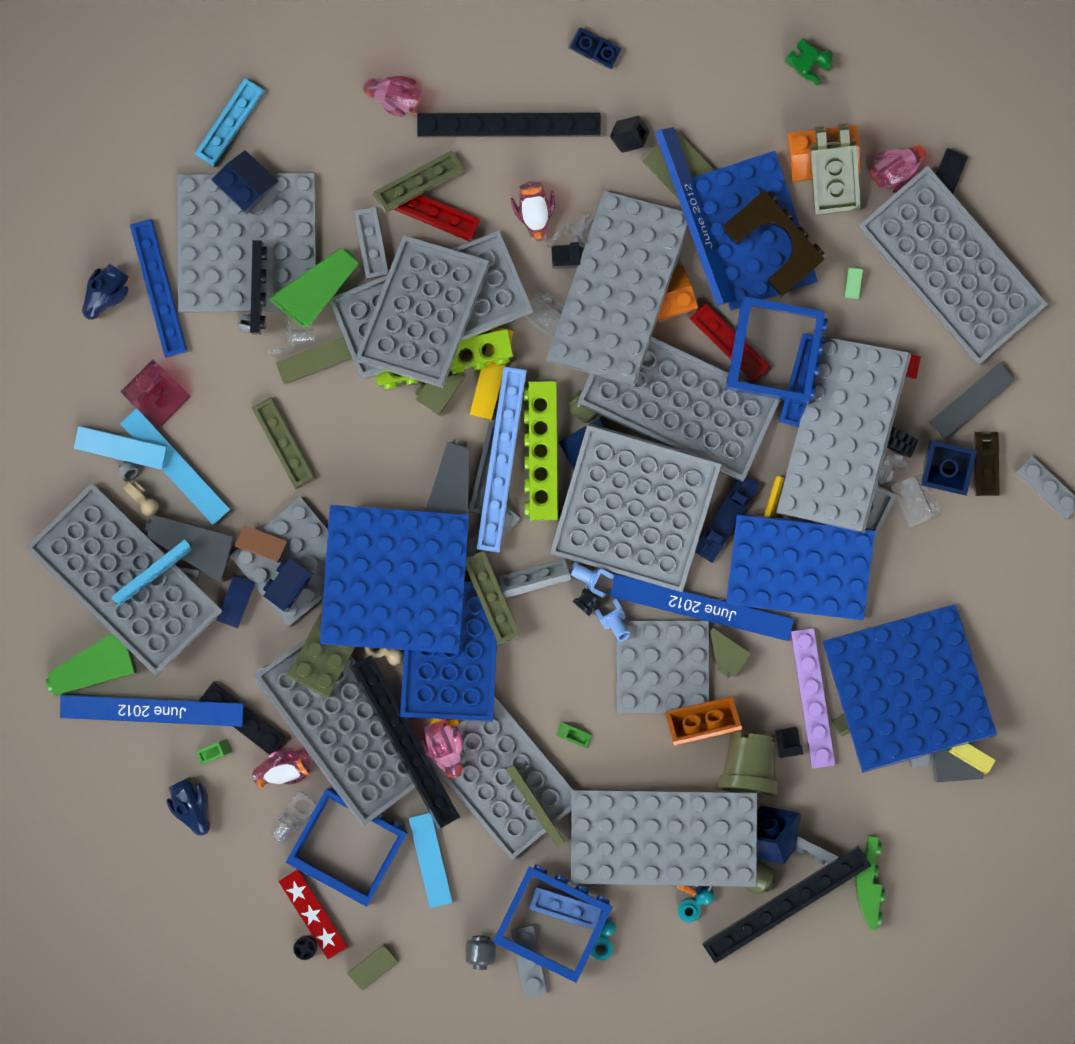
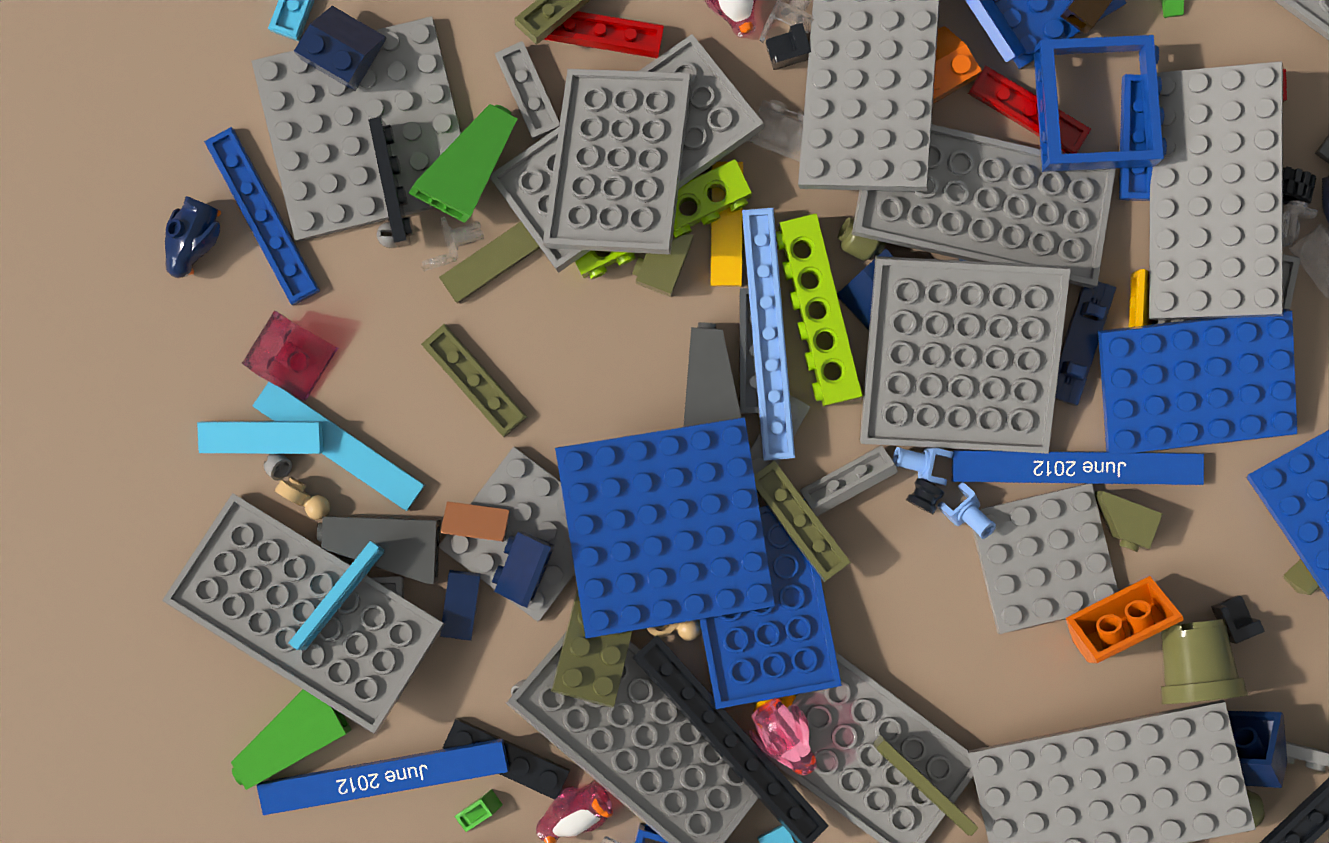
camera: 10 degrees left, 0 degrees up
(574, 735) = (948, 675): bright green piece -> none
(812, 698) = (1253, 553): lavender plate -> none

